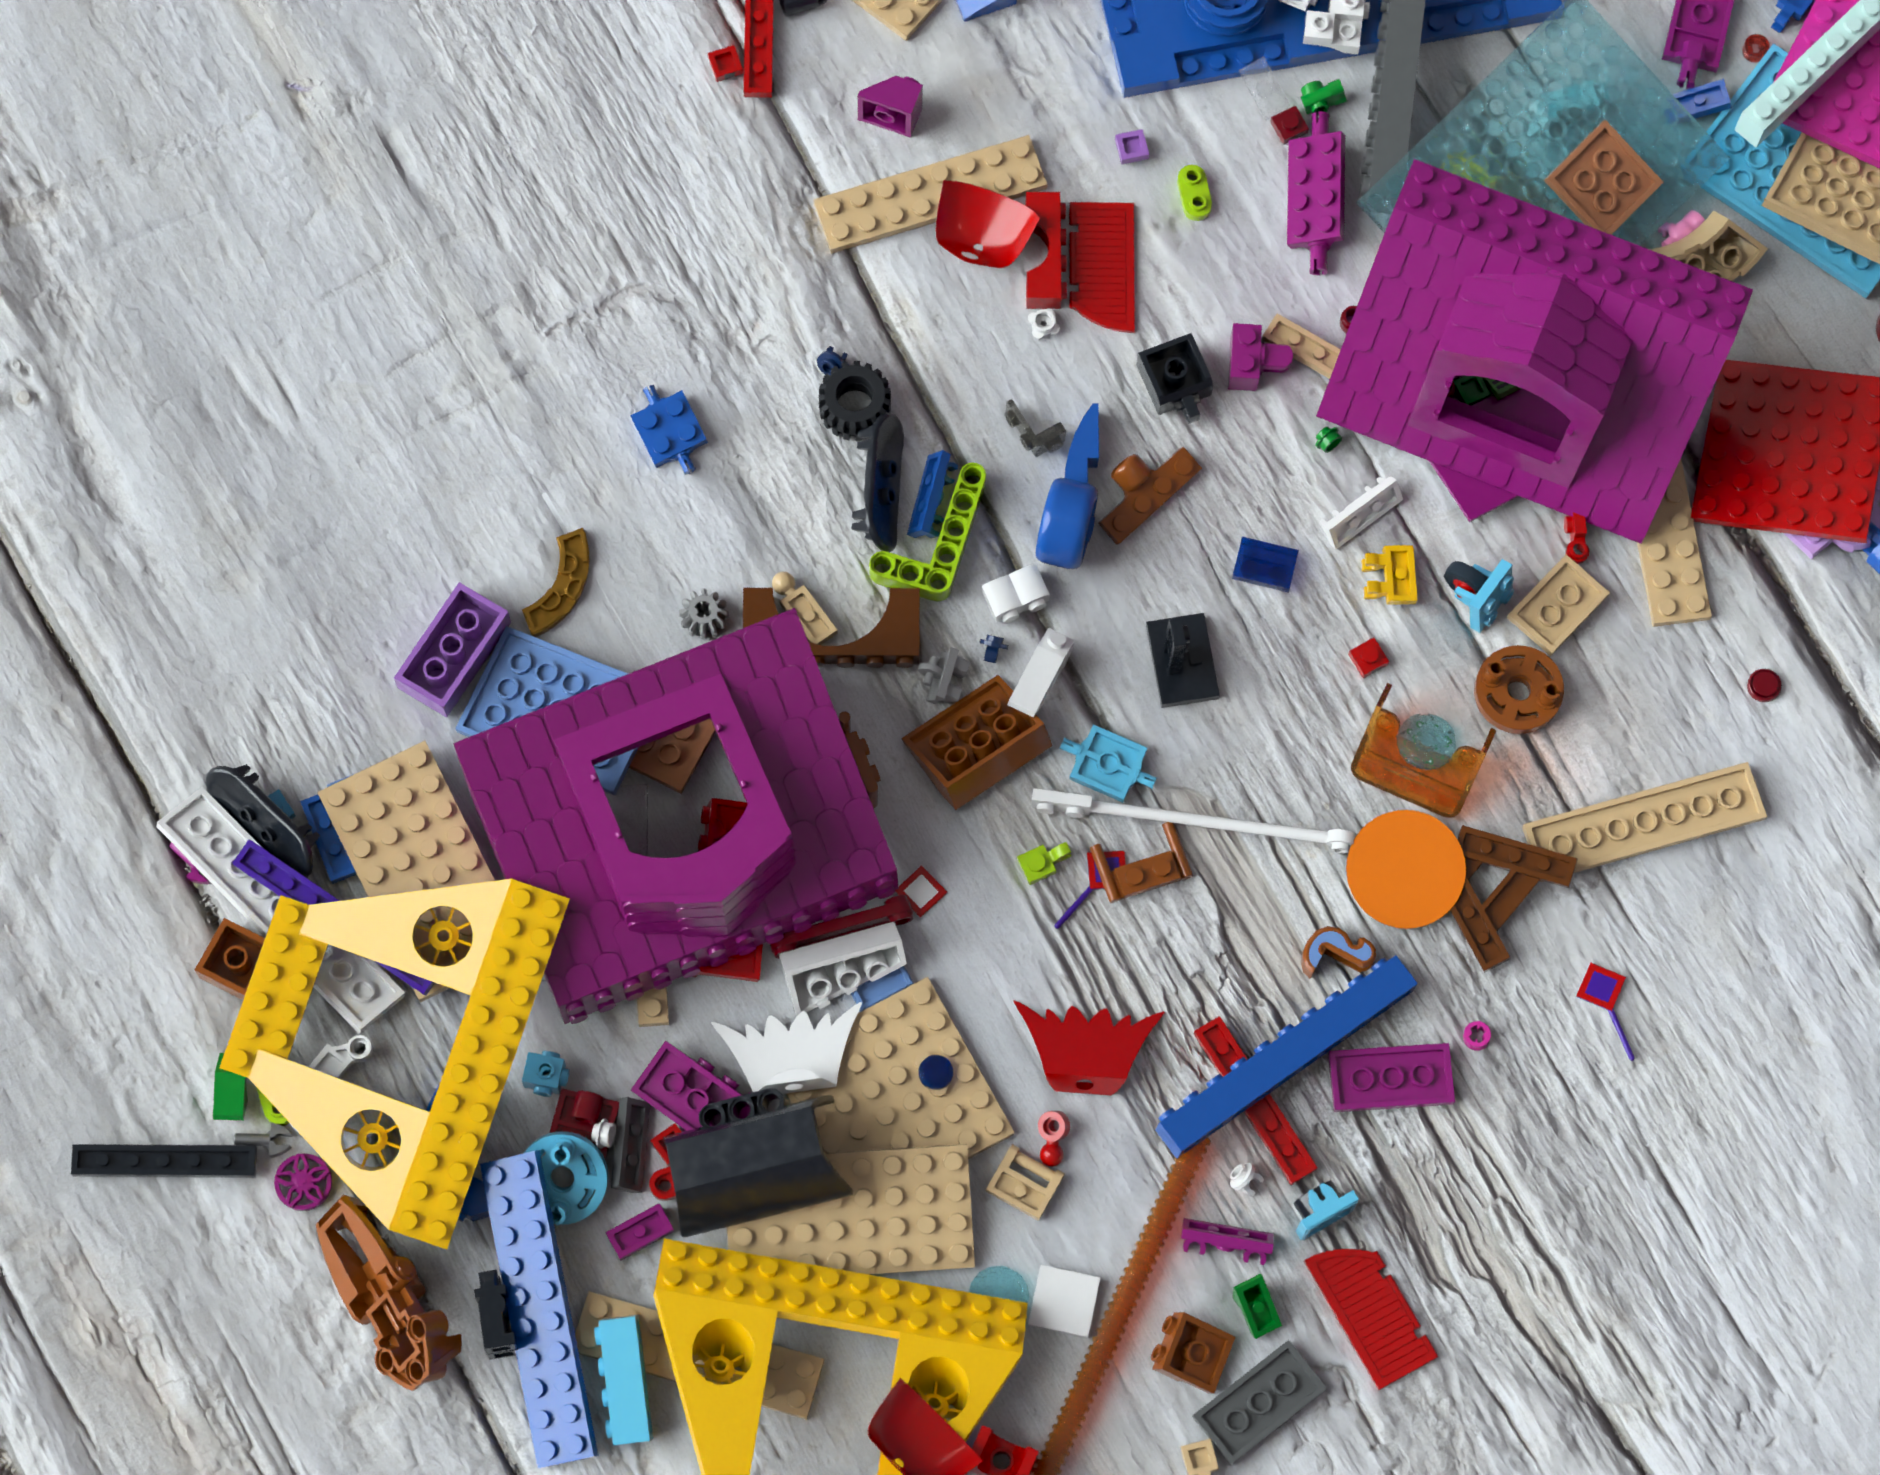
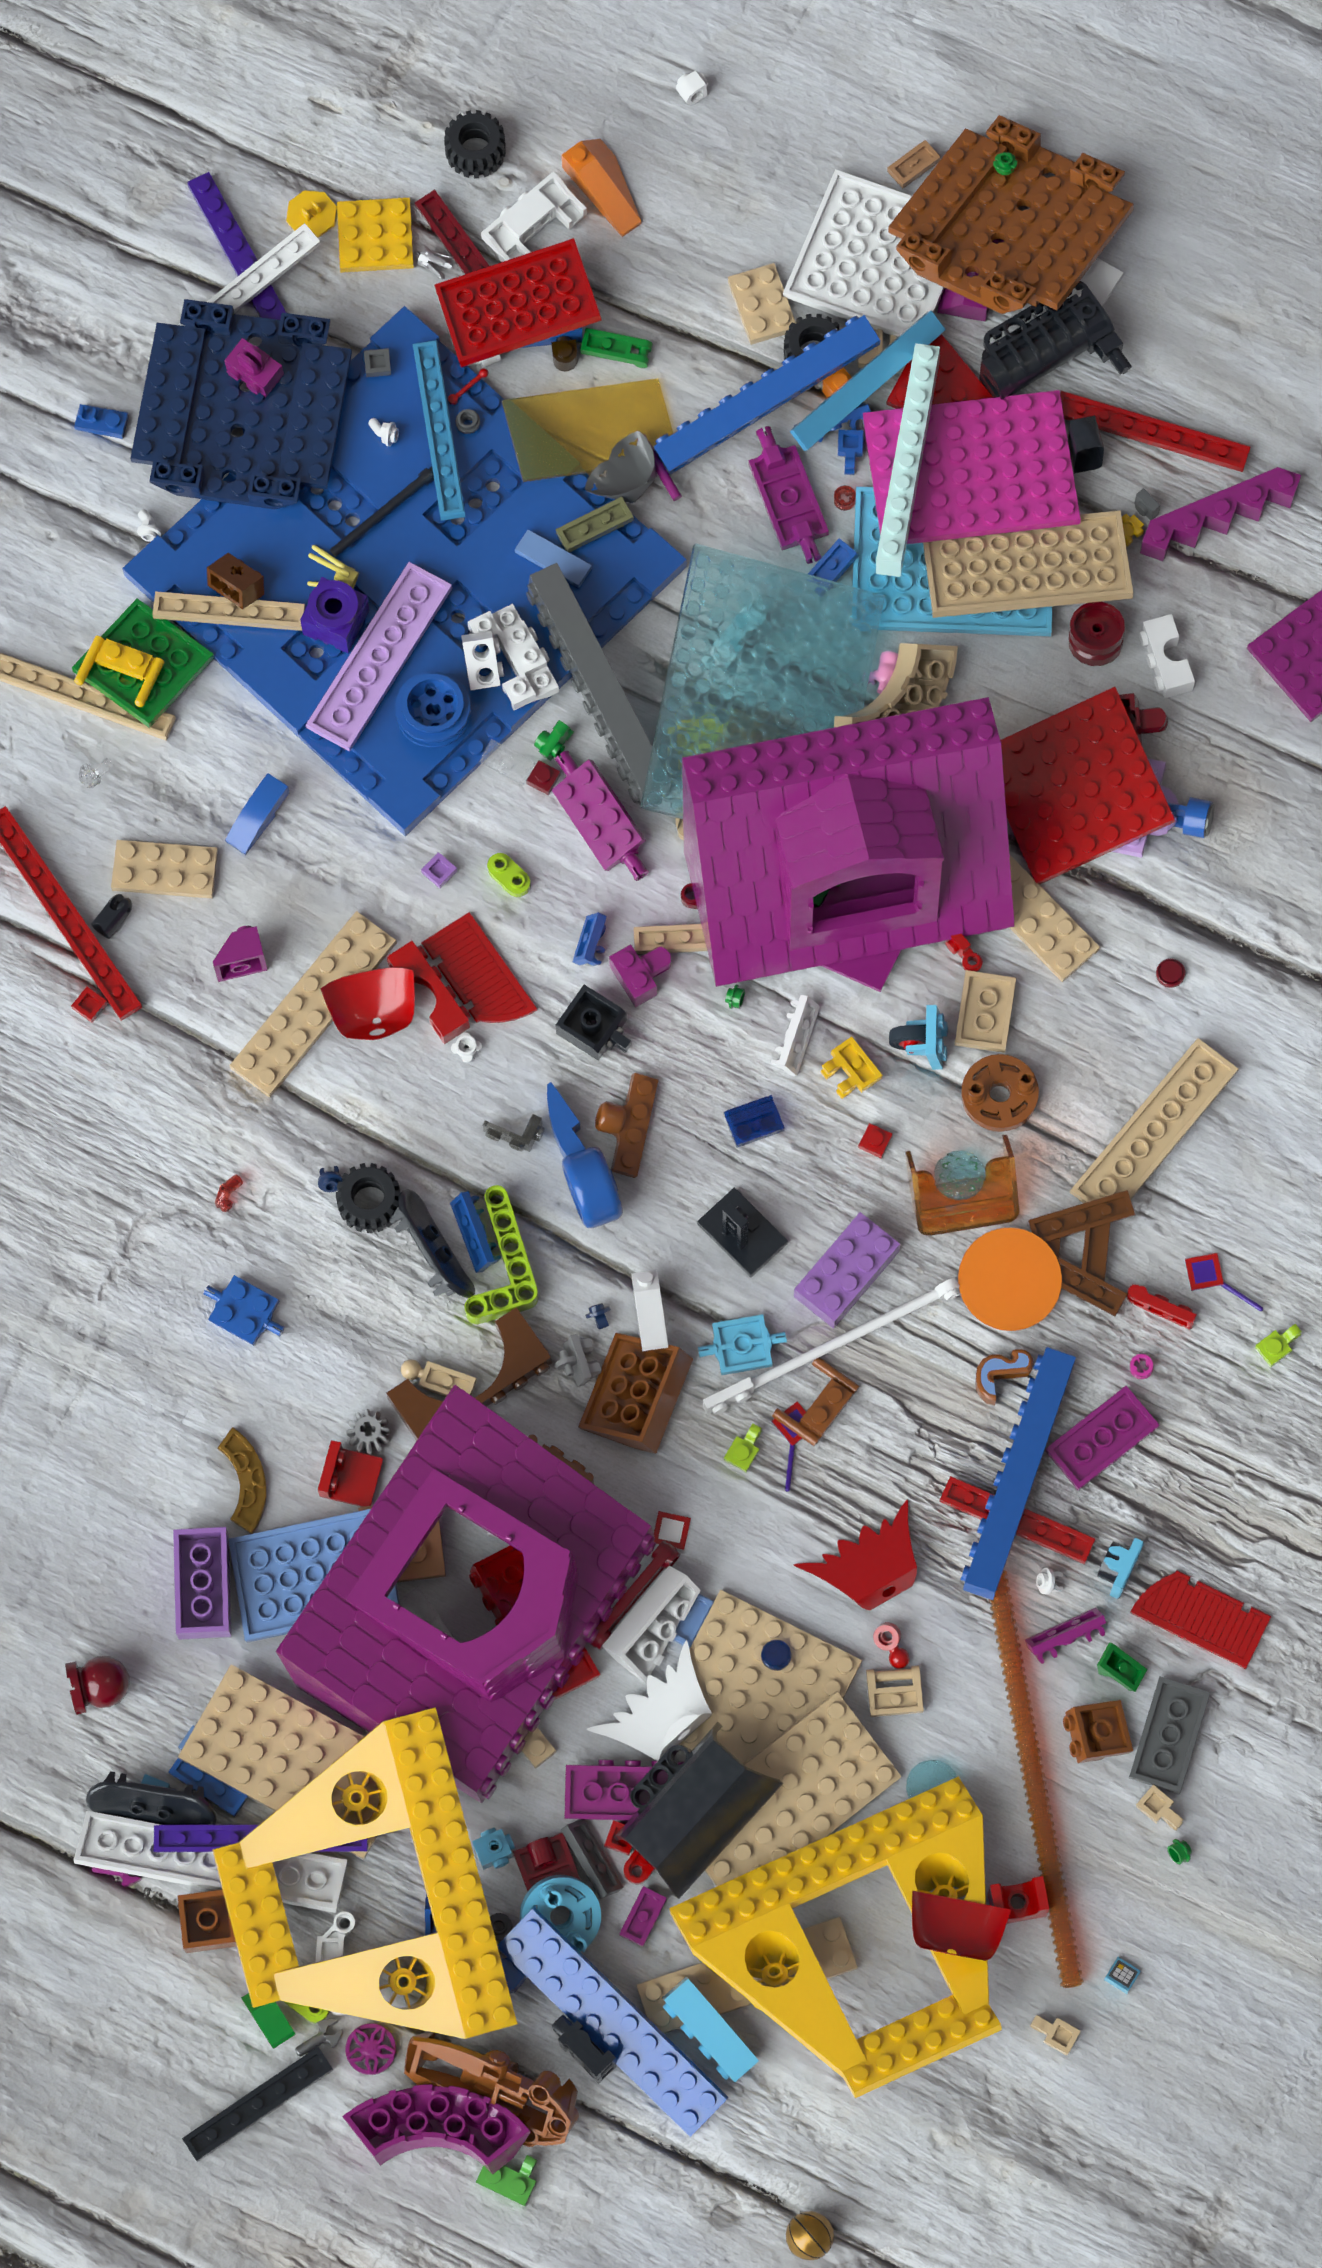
camera: 30 degrees left, 0 degrees up
(293, 676) = (98, 1683): none -> dark red tile
(315, 1287) = (438, 2118): none -> magenta brick
(339, 1389) = (510, 2183): none -> bright green plate
(496, 1140) = (500, 1917): none -> black plate
(604, 1133) = (568, 1863): white plate -> none
(654, 635) = (349, 1476): none -> red bracket
(727, 310) = (222, 1199): none -> clear red arm
(1016, 593) = (588, 1263): white brick -> none
(1064, 1301) = (981, 1758): white tile -> none
(1236, 292) = (587, 946): none -> blue plate
(1255, 759) = (846, 1270): none -> medium lavender brick
(1534, 991) = (1161, 1307): none -> red hinge
(1603, 180) = (807, 673): nougat plate -> none
(1620, 1103) = (1276, 1347): none -> lime plate

